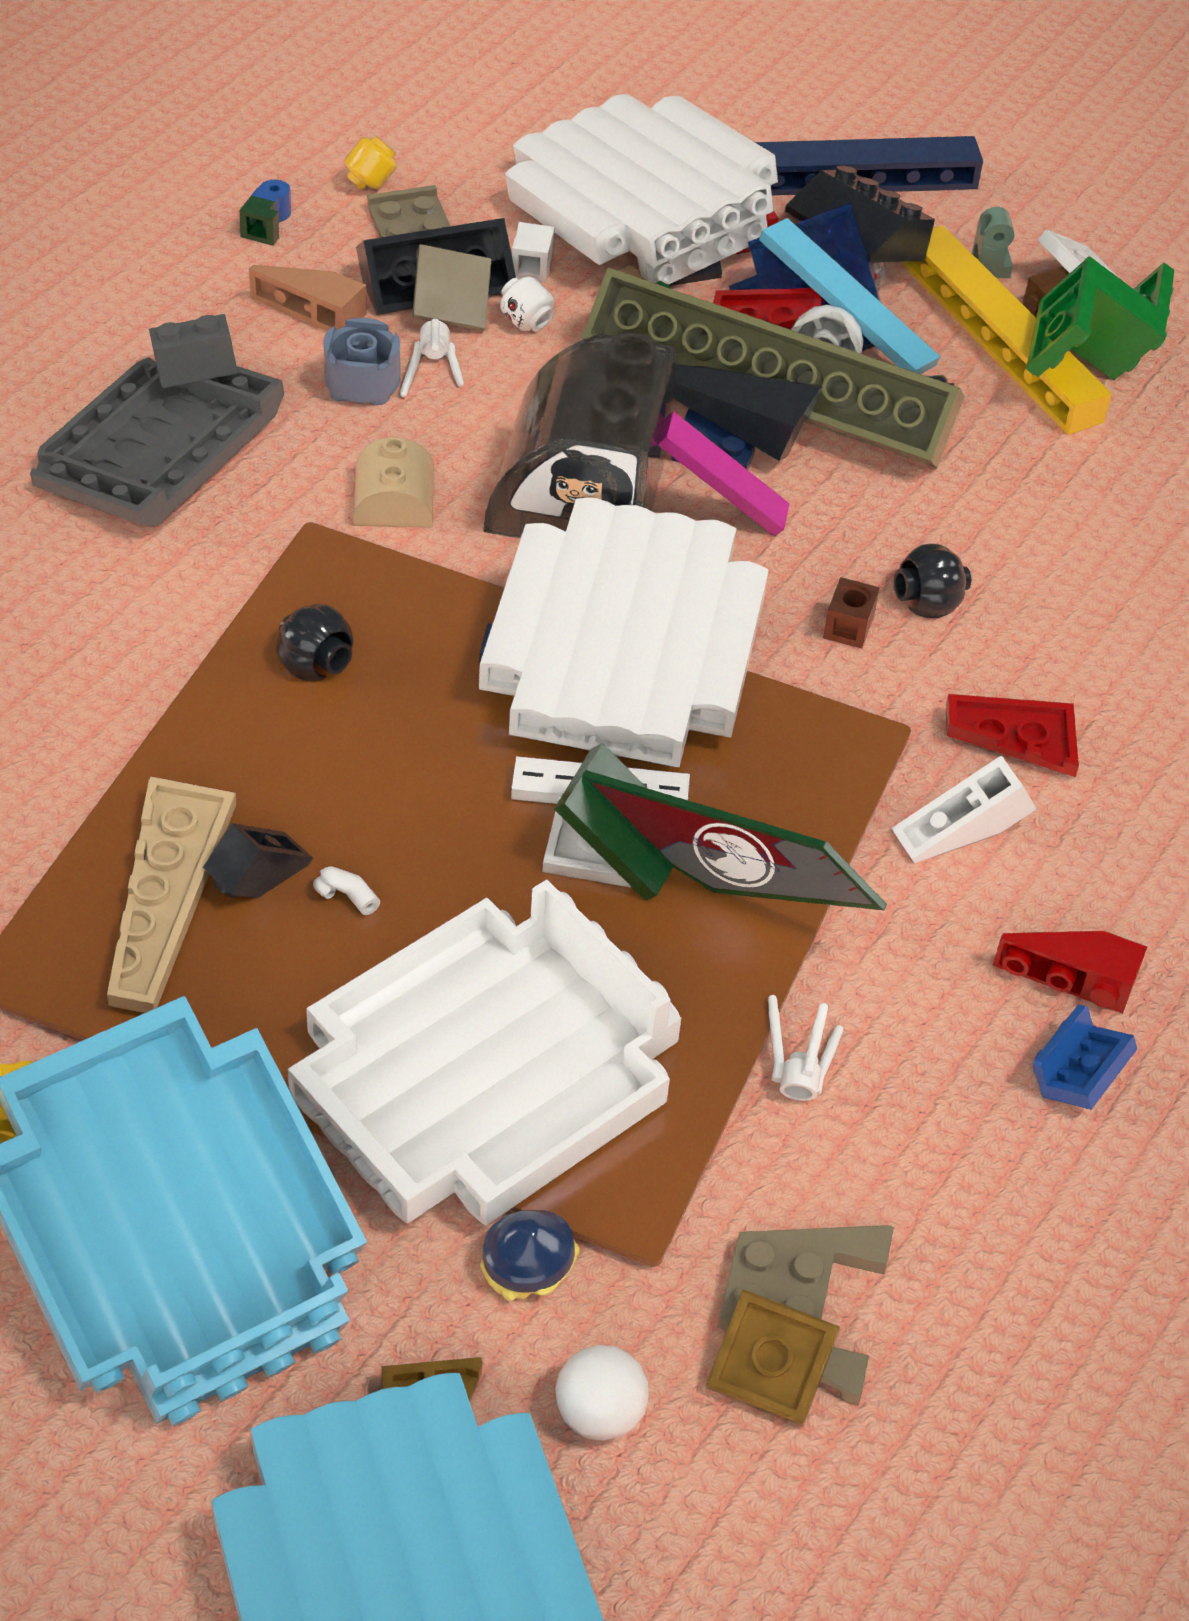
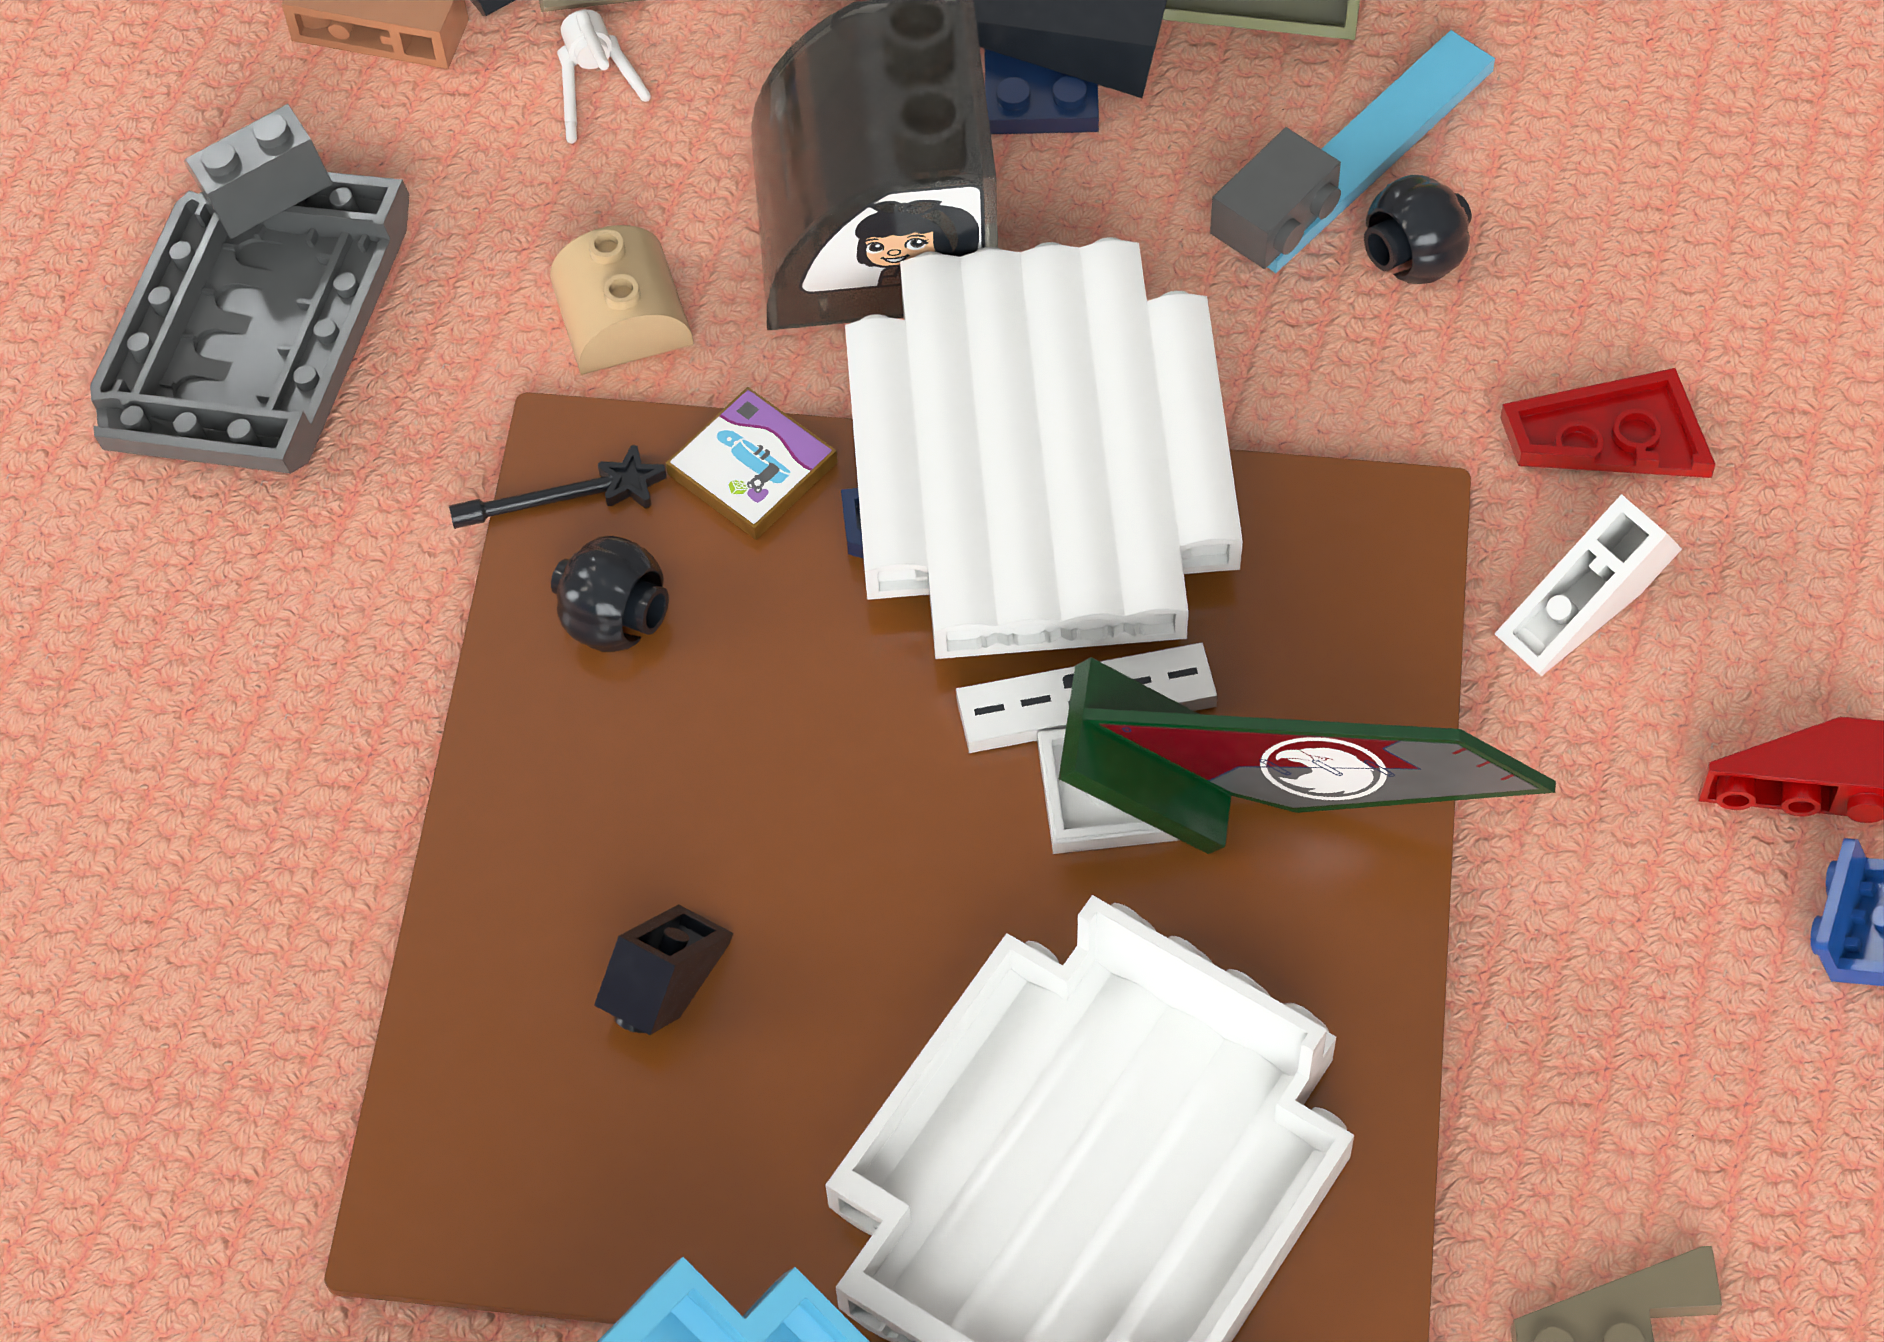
camera: 10 degrees left, 10 degrees up
(167, 880) = (541, 990): tan wing -> none
(347, 585) = (617, 480): none -> black piece
(349, 884) = (803, 961): white arm -> none
(362, 361) = (500, 109): sand blue brick -> none
(438, 596) = (751, 462): none -> tile
(723, 473) = (1084, 152): dark pink tile -> none
(801, 1074) = (1513, 1052): white plant -> none
(841, 535) = (1276, 198): none -> dark grey piece
(851, 612) = (1326, 313): copper brick -> none
(910, 530) = (1399, 121): none -> medium azure tile

